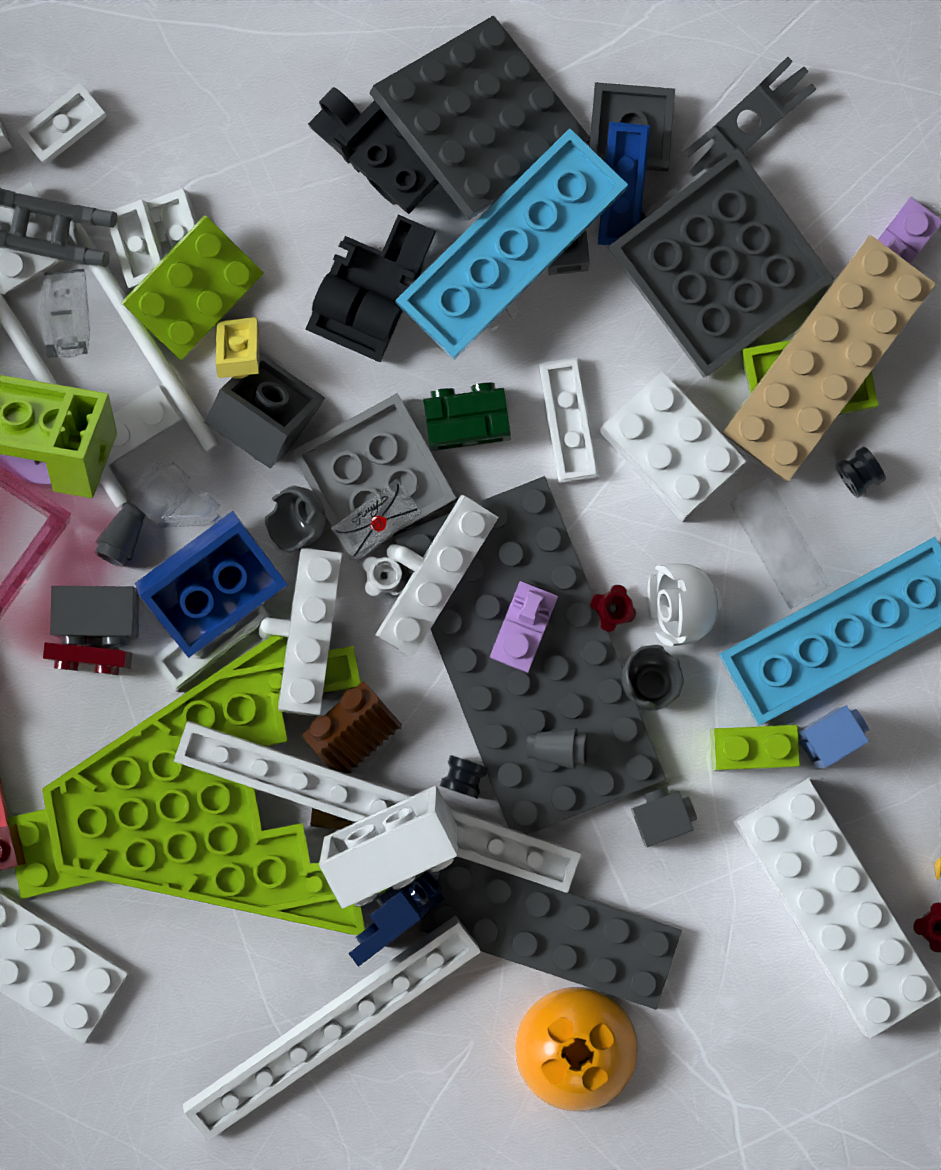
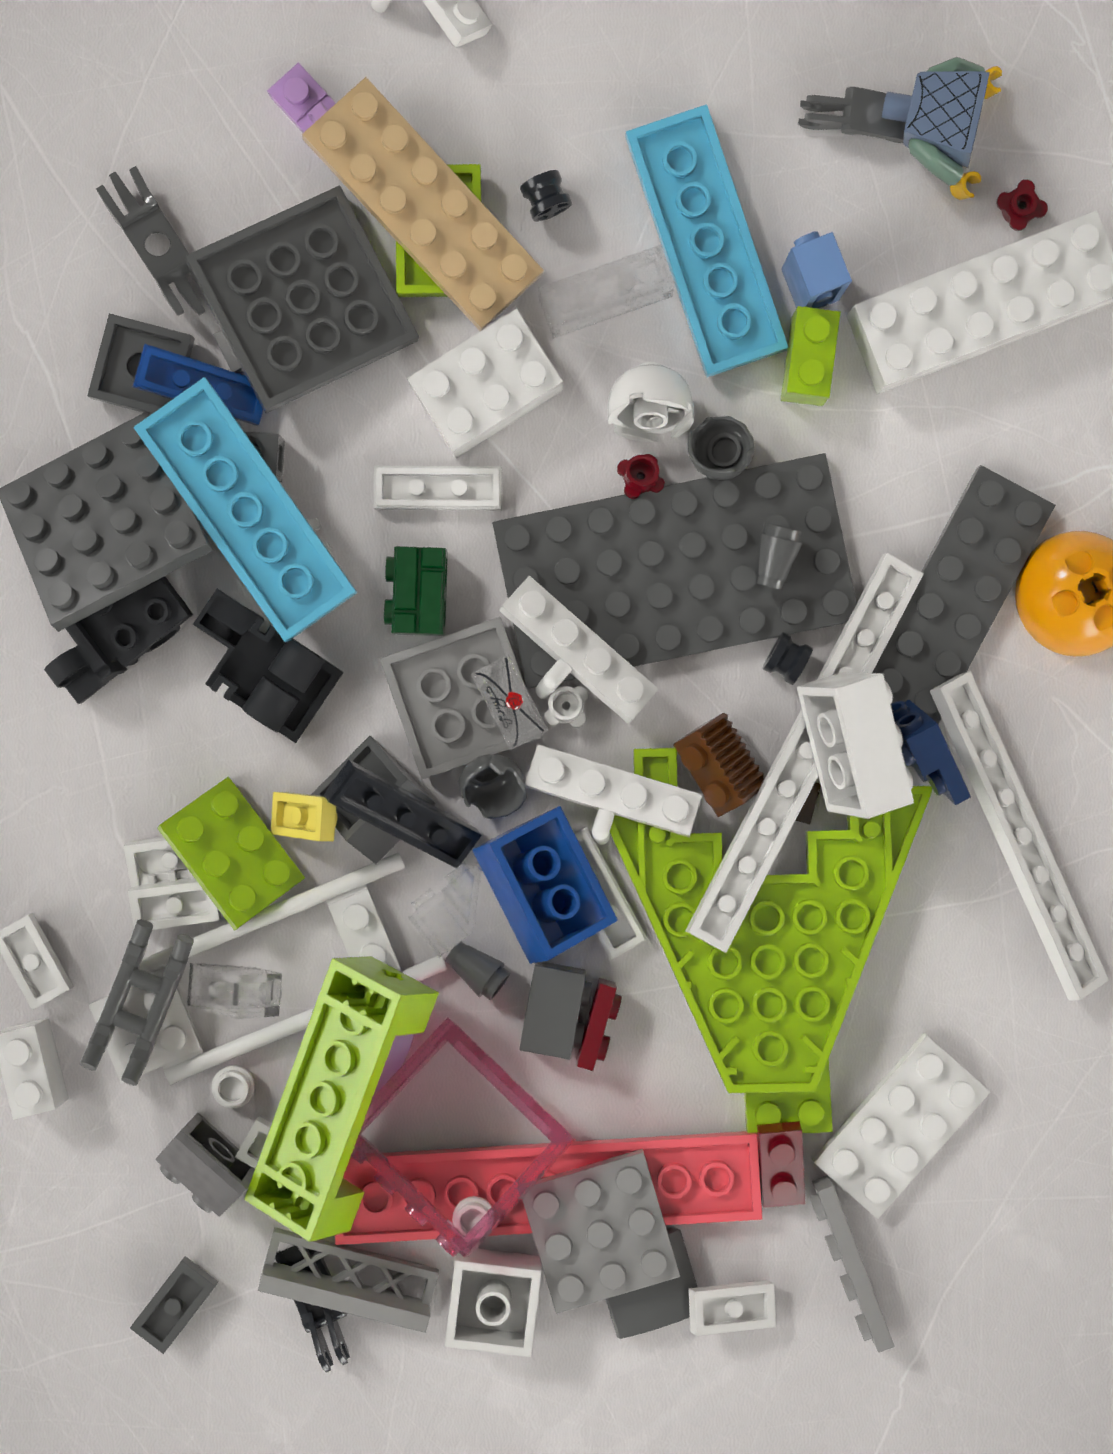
camera: 90 degrees left, 5 degrees up
(253, 437) = (402, 814): none -> black tile
(523, 627) = (646, 569): lavender hinge -> none
(663, 816) = (864, 462): dark grey brick -> none

